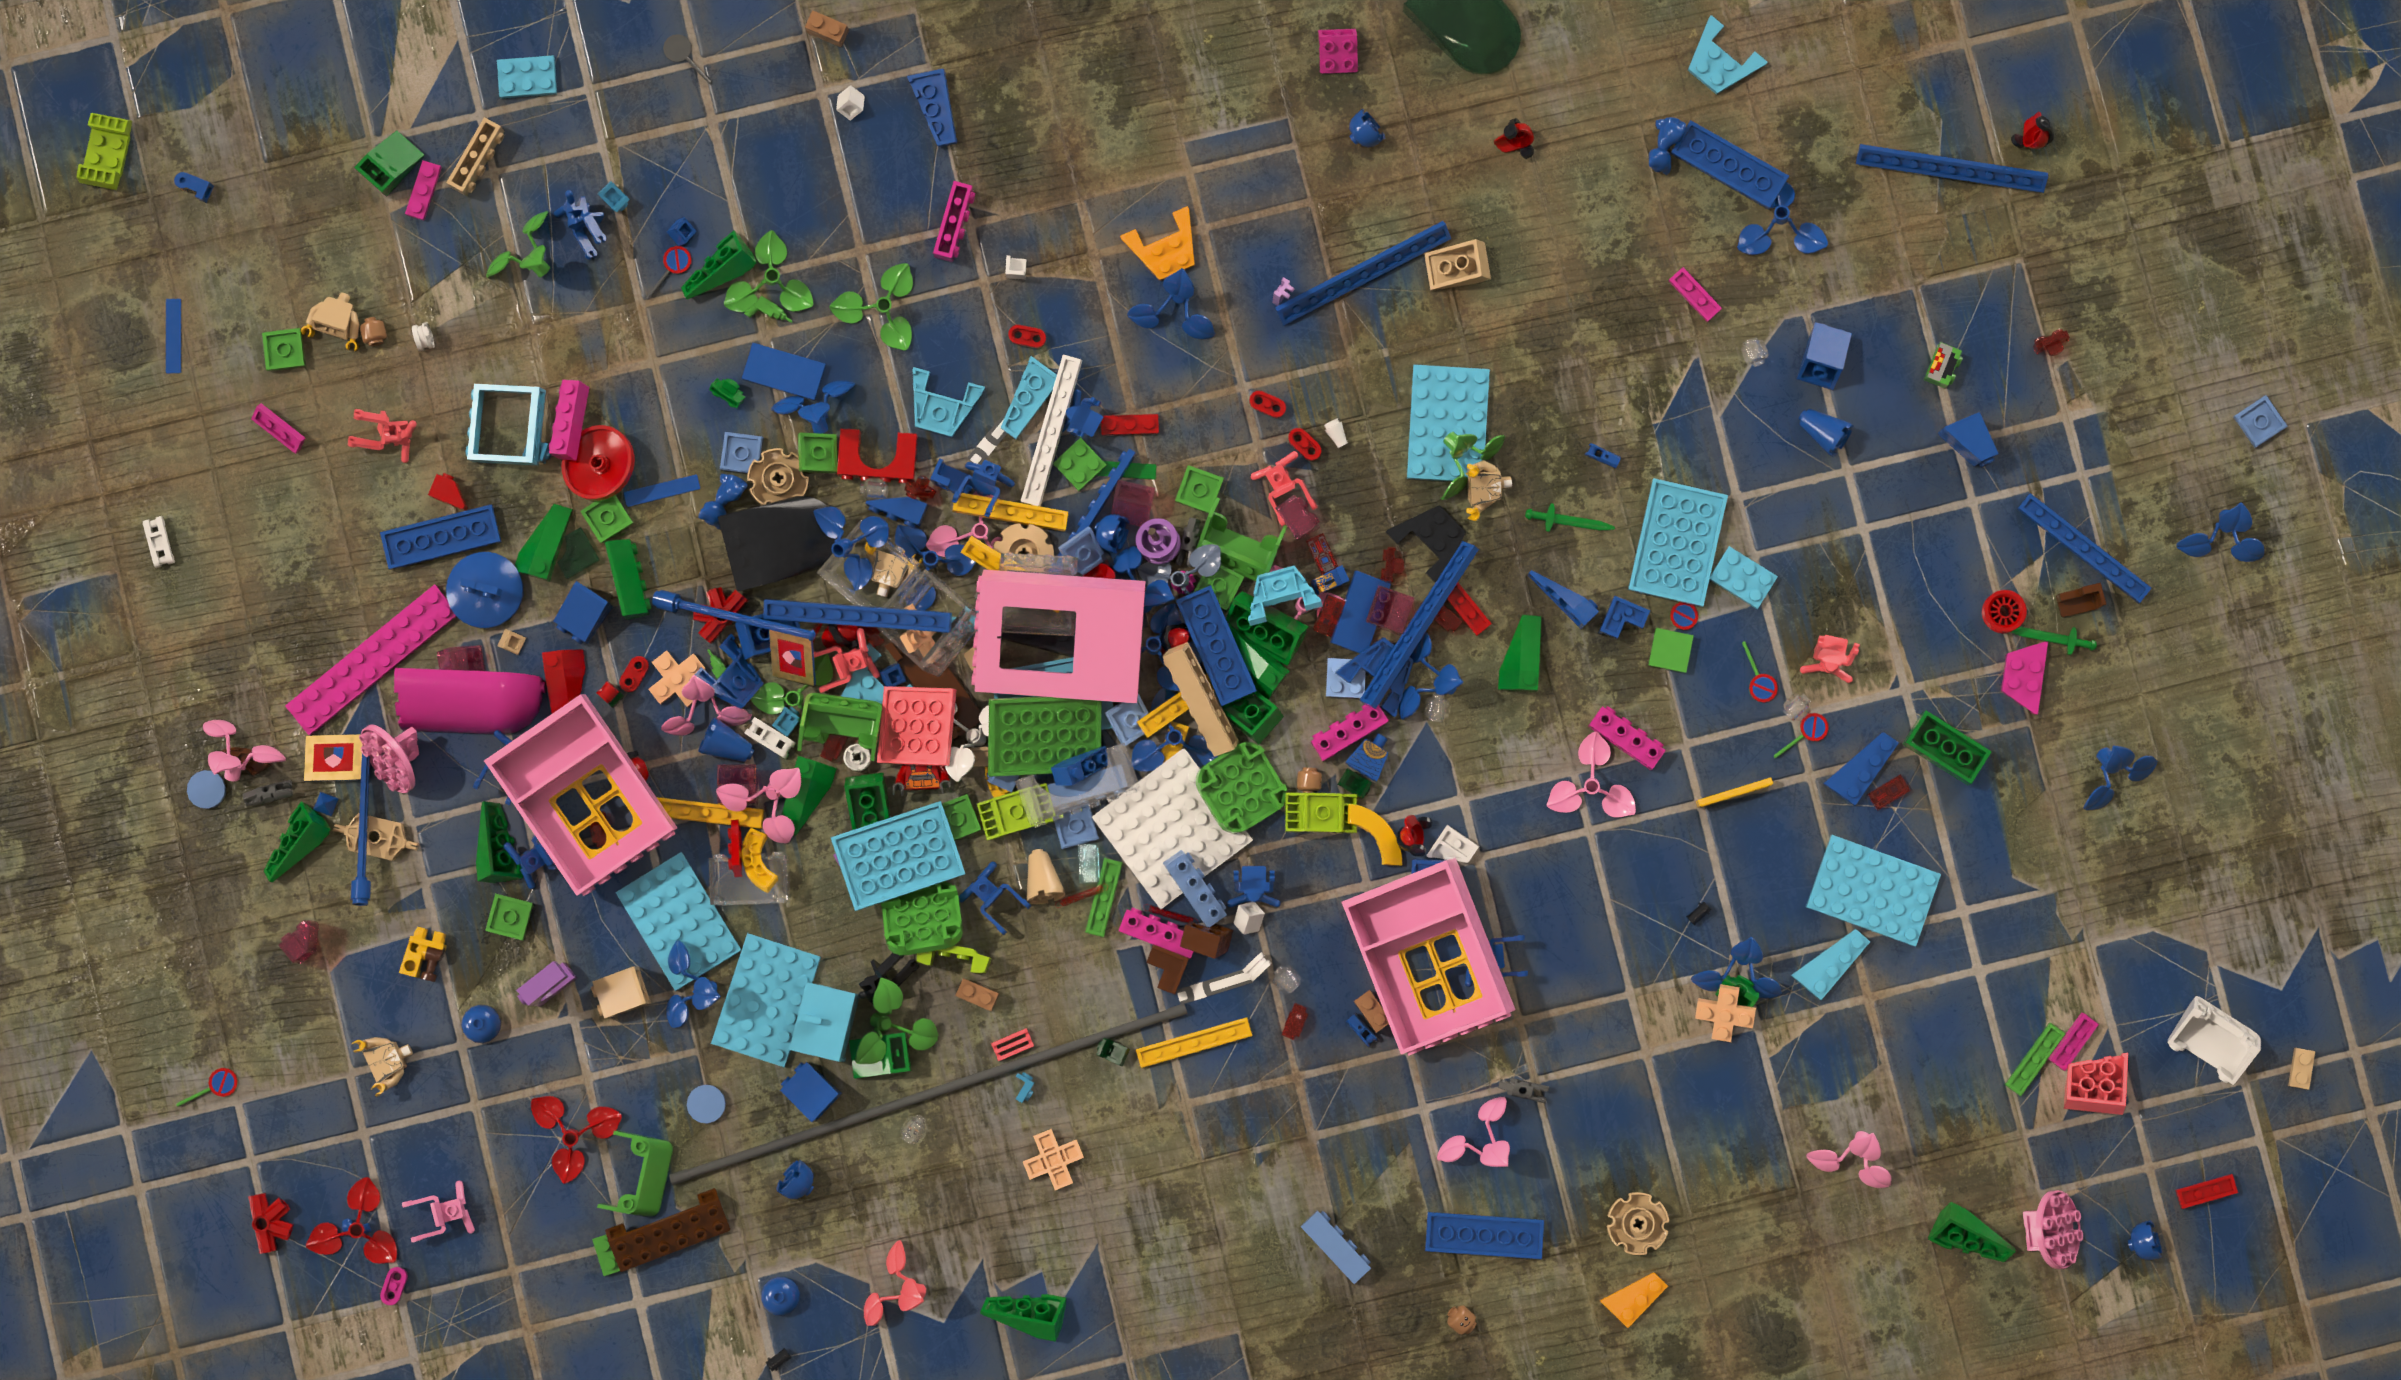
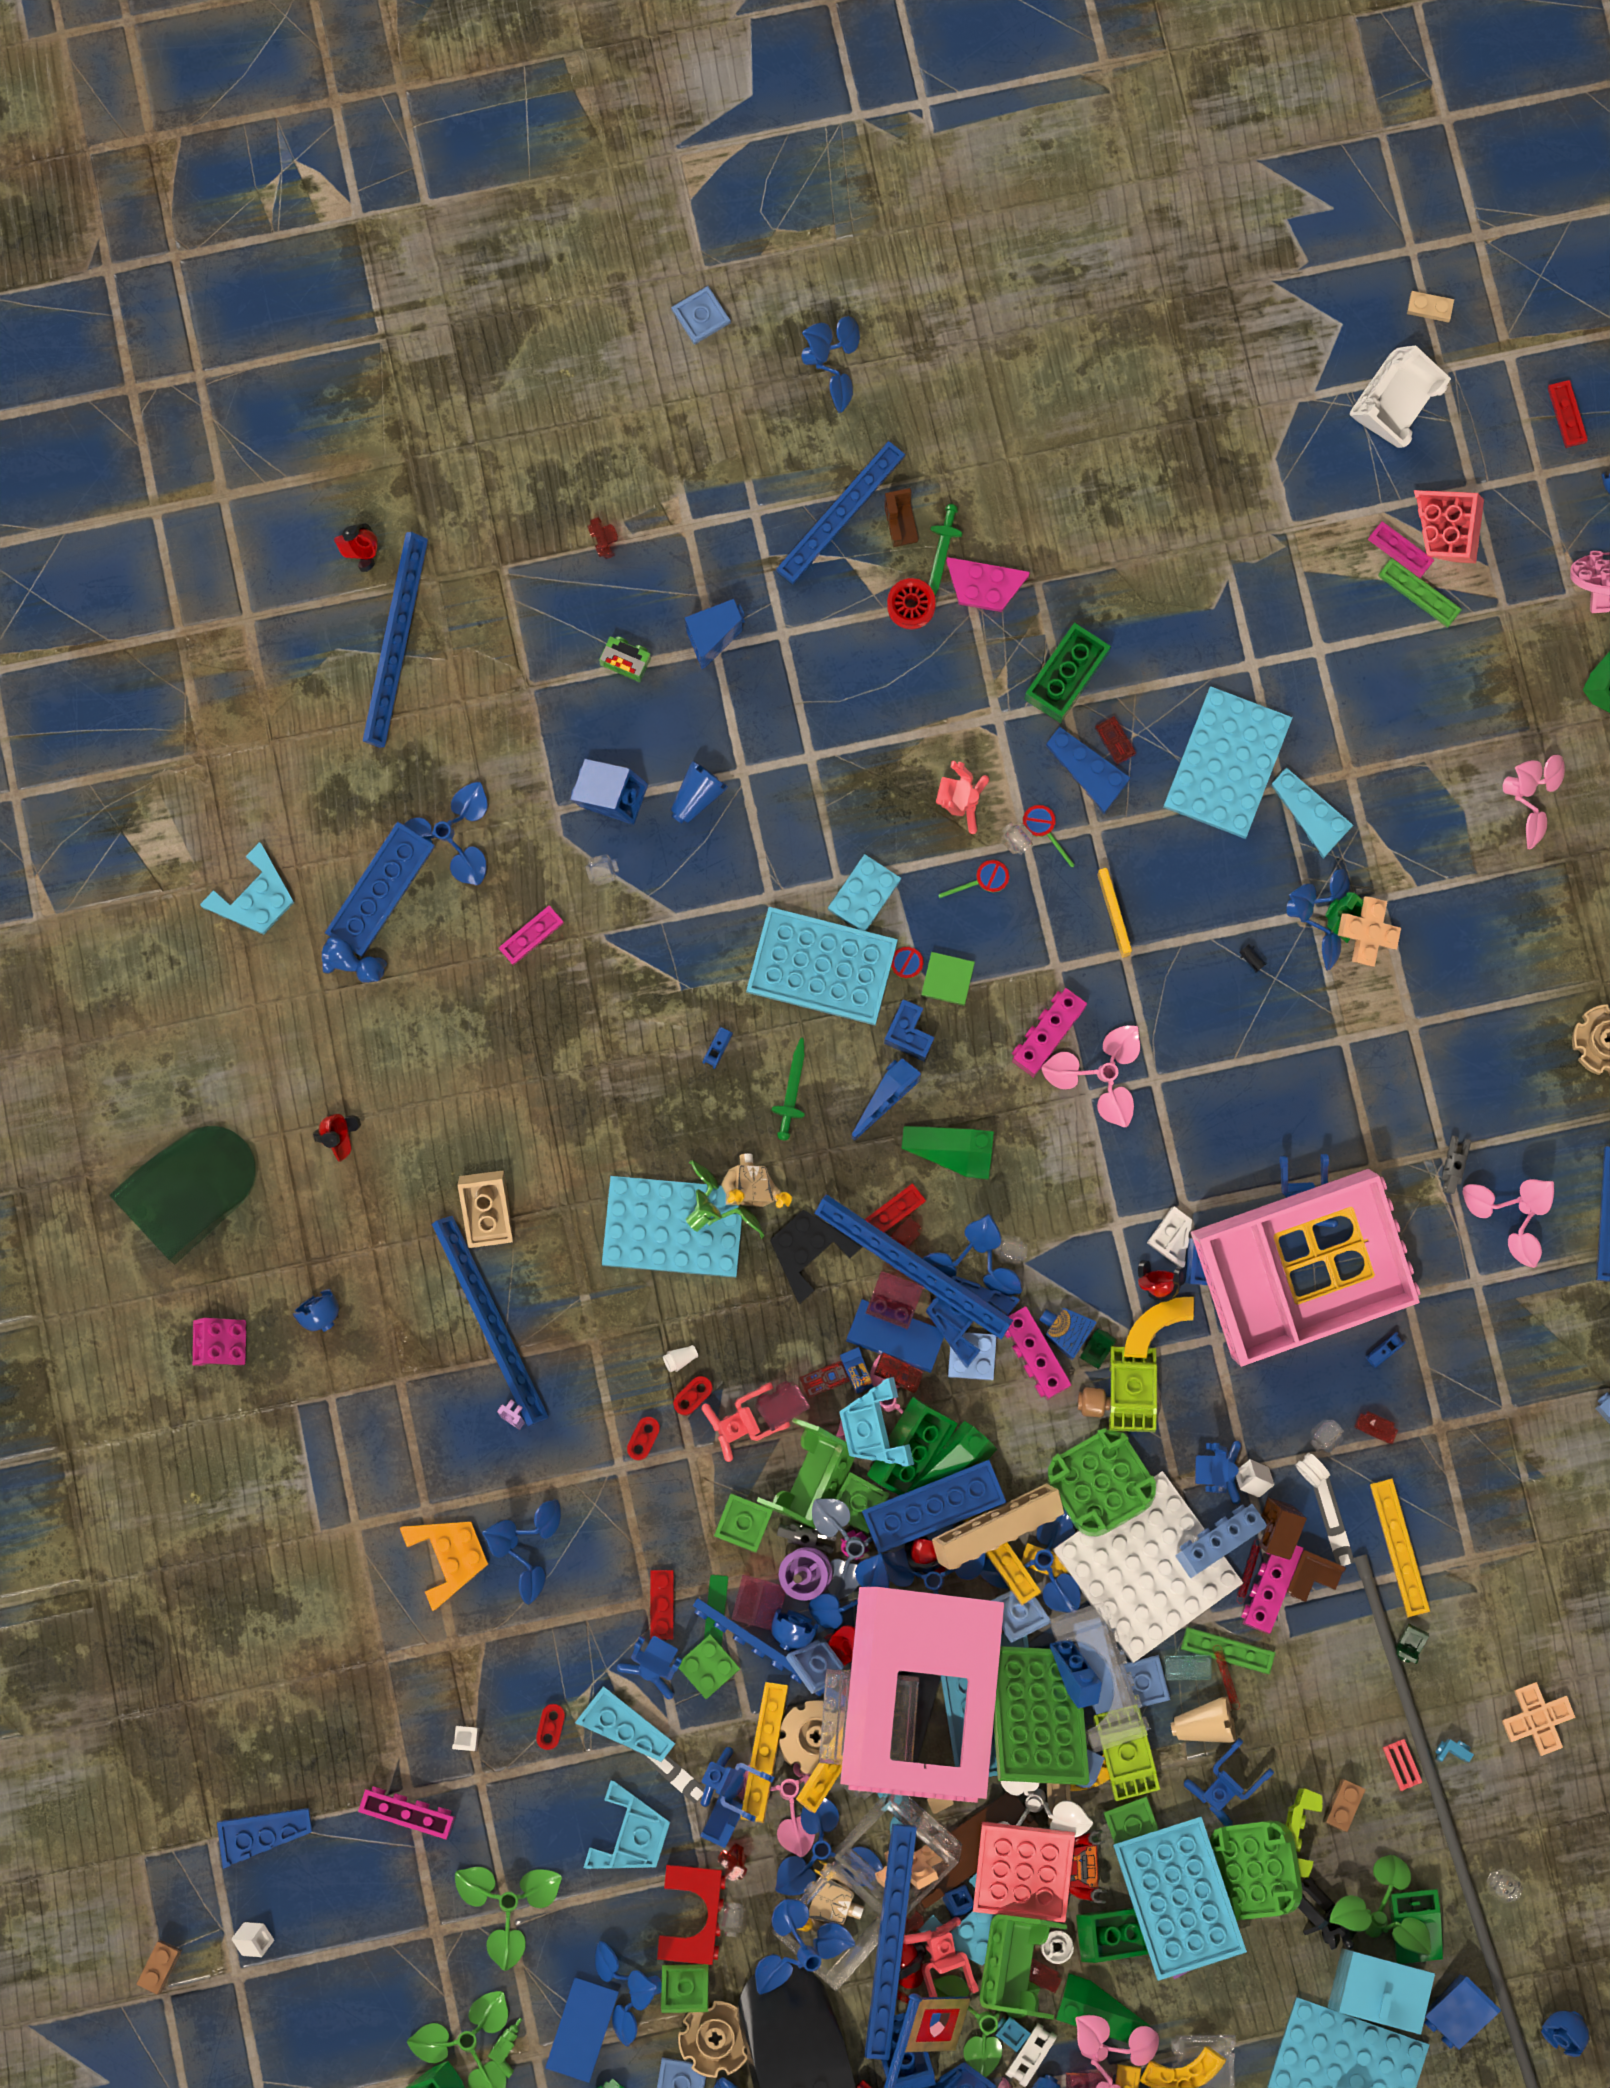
camera: 90 degrees left, 5 degrees down
(903, 508) = (756, 1882): blue slope -> none
(1051, 430) = (667, 1699): white plate -> none
(1253, 715) = (1016, 1465): green slope -> none
(1372, 1011) = (1364, 1336): medium nougat brick -> none
(1392, 565) = (840, 1297): clear red piece -> none
(2112, 762) = (1092, 486): blue plant -> none

